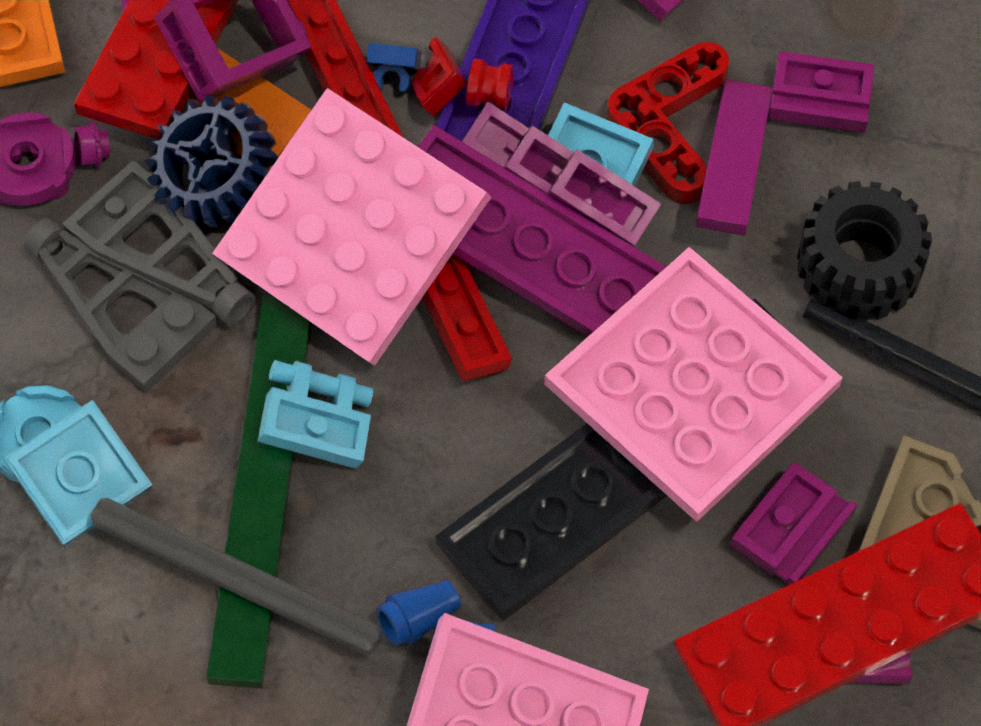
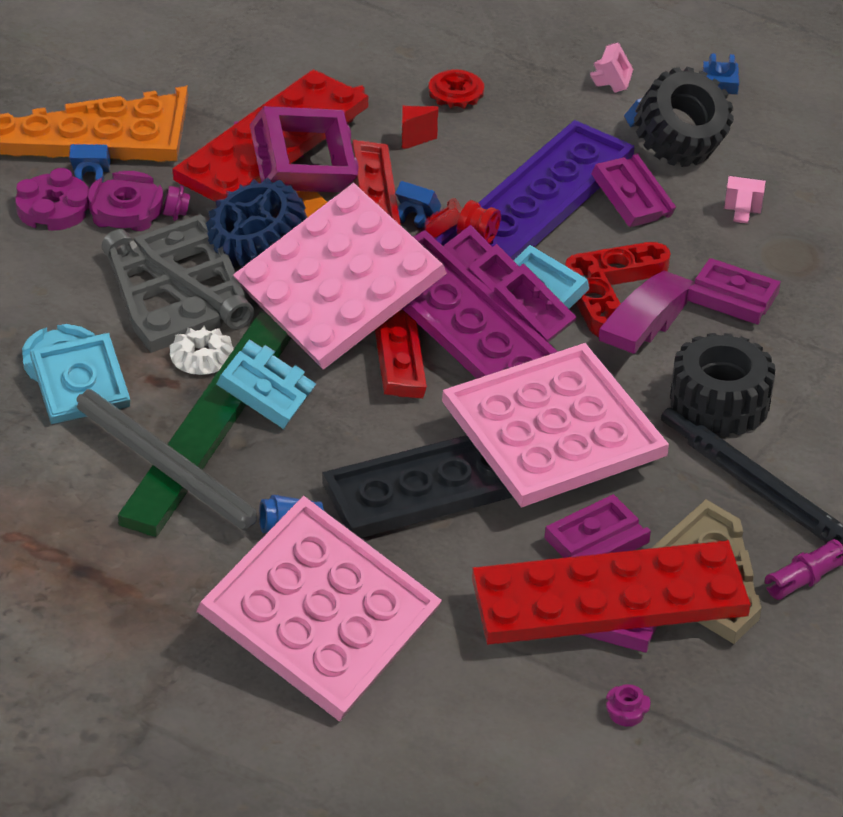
camera: 15 degrees right, 20 degrees down
(223, 392) = (205, 360): none -> white gear

